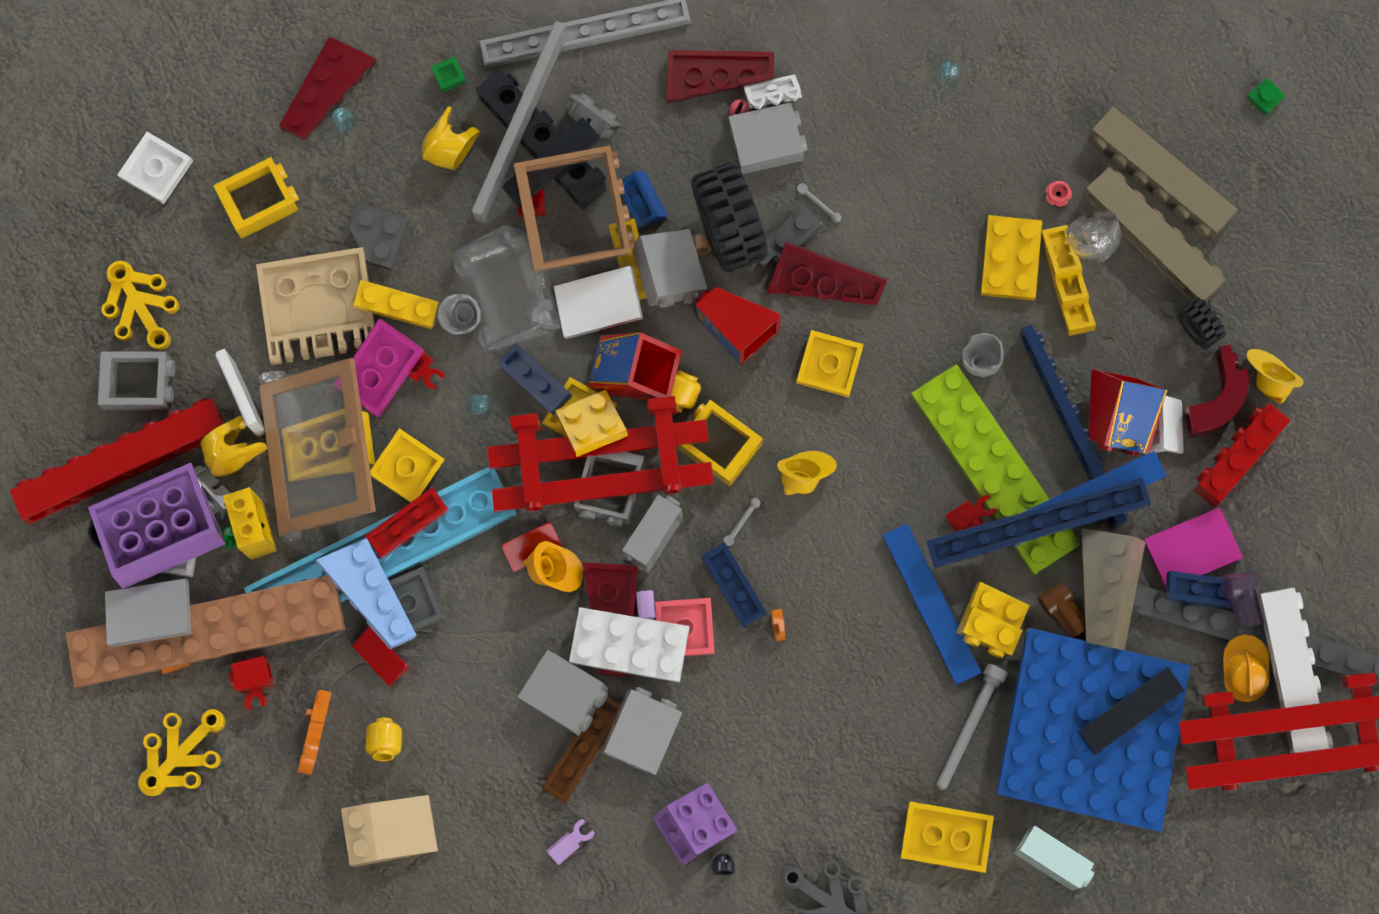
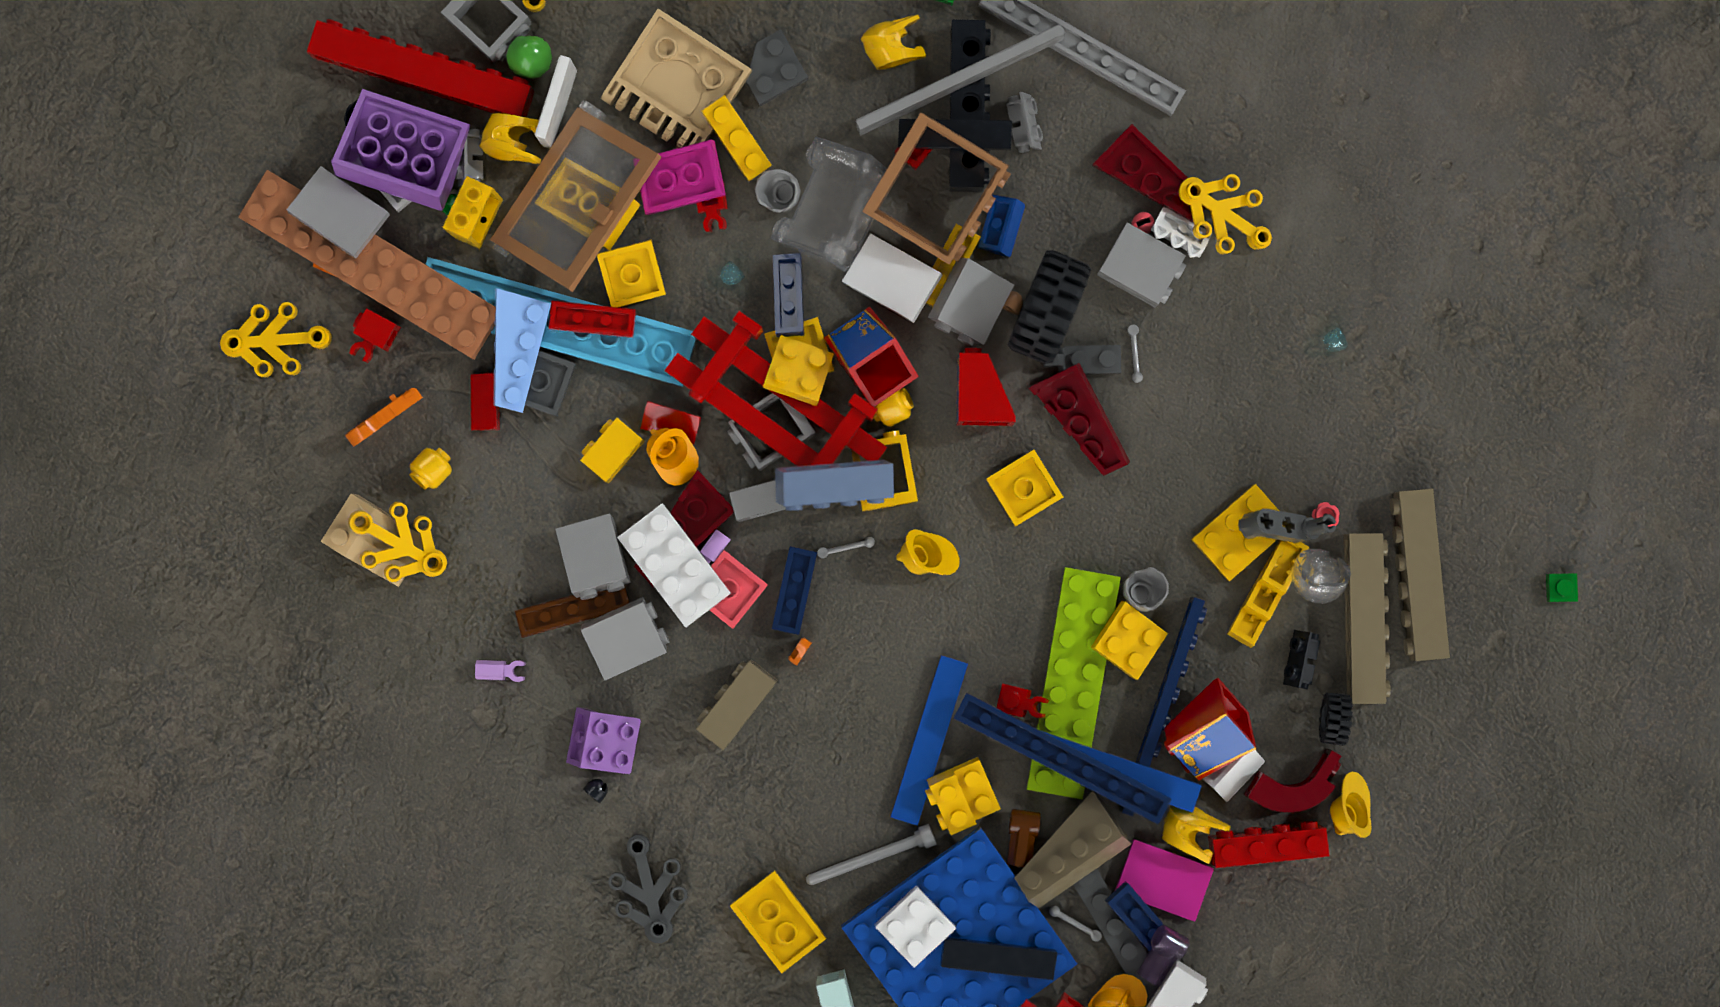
camera: 40 degrees right, 10 degrees up
(191, 380) = (529, 56): none -> bright green hair
(413, 813) = (401, 545): none -> yellow plant
(507, 604) = (611, 450): none -> yellow brick
(691, 474) = (834, 483): none -> sand blue brick
(767, 702) = (735, 703): none -> dark tan brick
(788, 53) = (1221, 212): none -> yellow plant
(1005, 401) = (1129, 640): none -> yellow plate
(1036, 222) = (1297, 527): none -> dark grey beam
(1049, 741) = (915, 926): none -> white plate
(1130, 297) = (1297, 671): none -> black hinge
(1168, 493) = (1182, 826): none -> yellow helmet
(1182, 634) = (1094, 934): none -> light grey hinge

